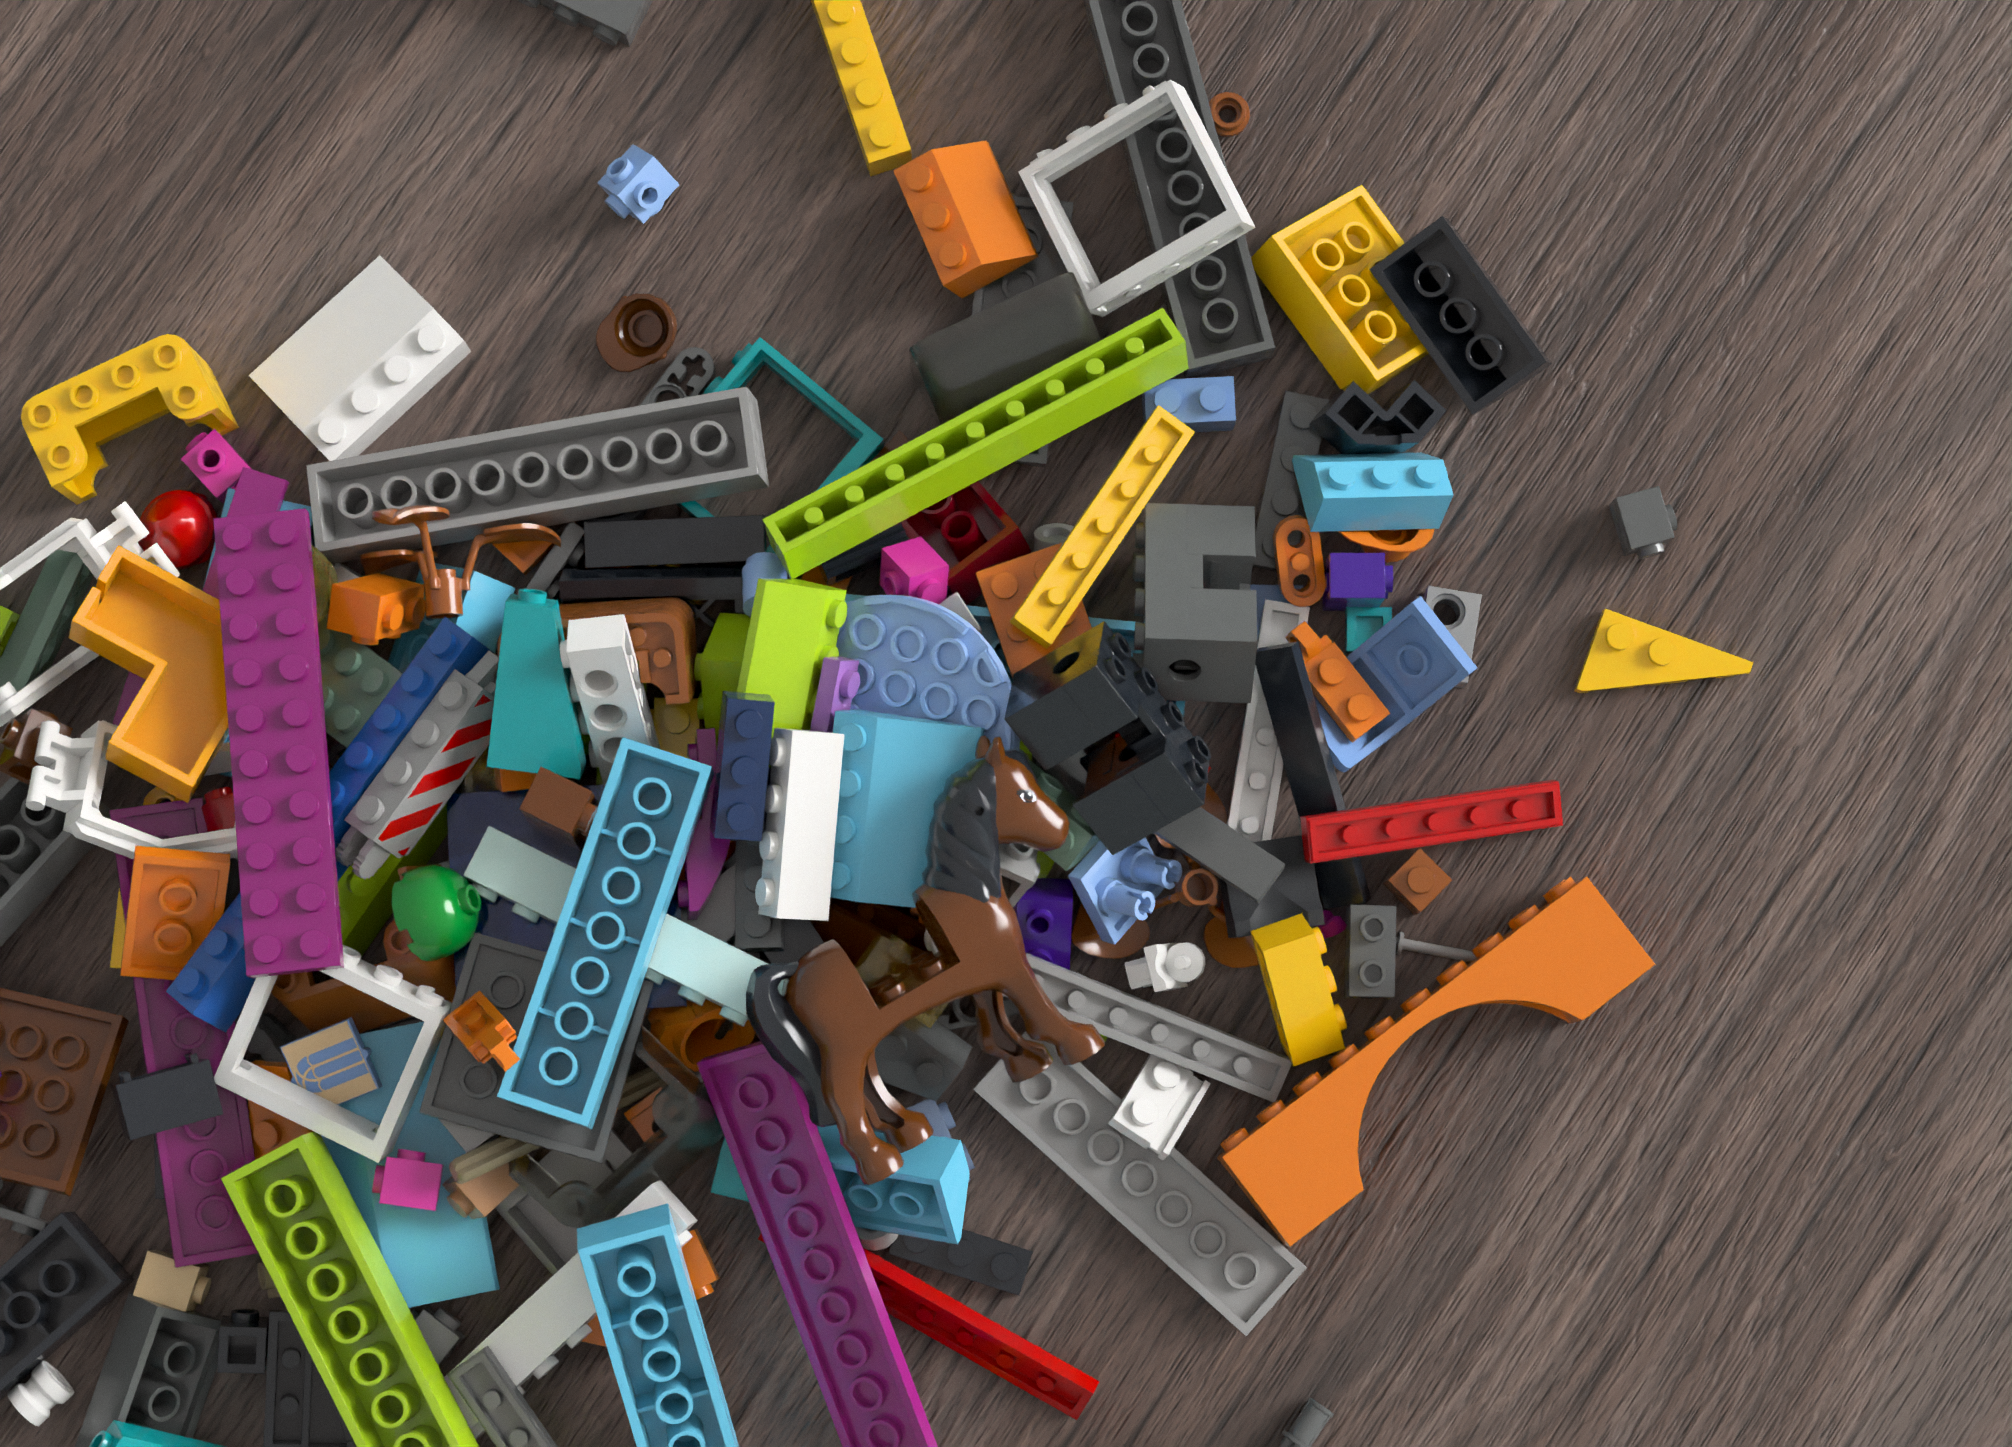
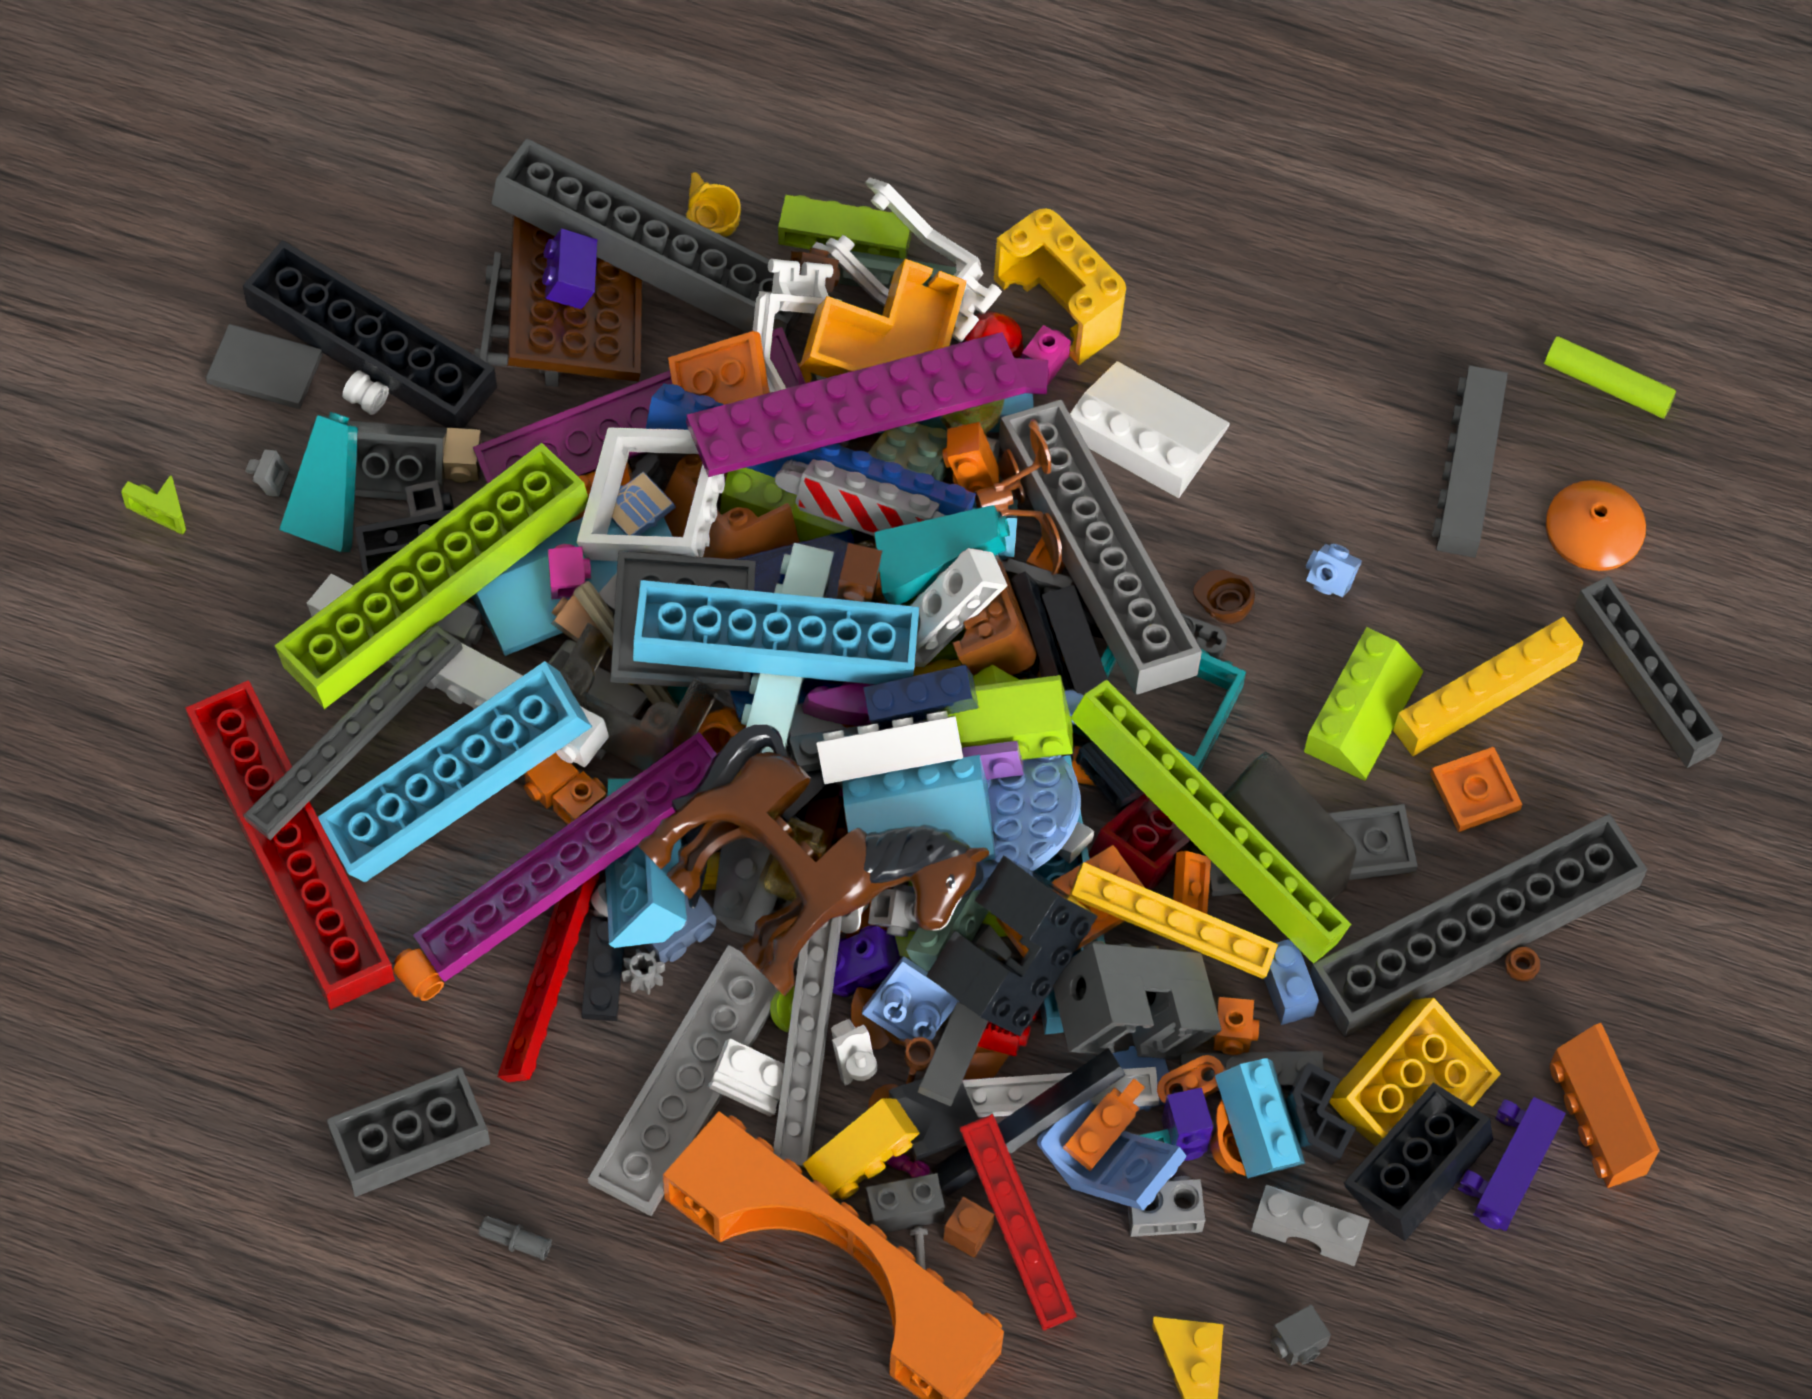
camera: 75 degrees right, 20 degrees down
(166, 1098) = (589, 400): black container -> none
(436, 910) = (762, 528): green cylinder -> none
(483, 1031) = (685, 567): orange hinge -> none
(725, 1231) = (578, 797): none -> orange brick
(832, 202) = (1364, 705): none -> lime slope
(914, 571) = (1101, 804): dark pink brick -> none
(965, 215) = (1380, 788): orange slope -> none
(983, 97) = (1476, 789): none -> orange plate
(992, 1213) = (647, 962): none -> light grey gear
(1039, 491) = (1192, 880): none -> orange plate
(1169, 260) = (1353, 894): white window -> none
(1237, 473) = (1236, 1025): none -> orange brick
(1446, 75) = (1604, 1107): none -> orange slope
(1487, 200) = (1518, 1165): none -> dark purple brick
(1509, 470) = (1291, 1215): none -> light grey arch

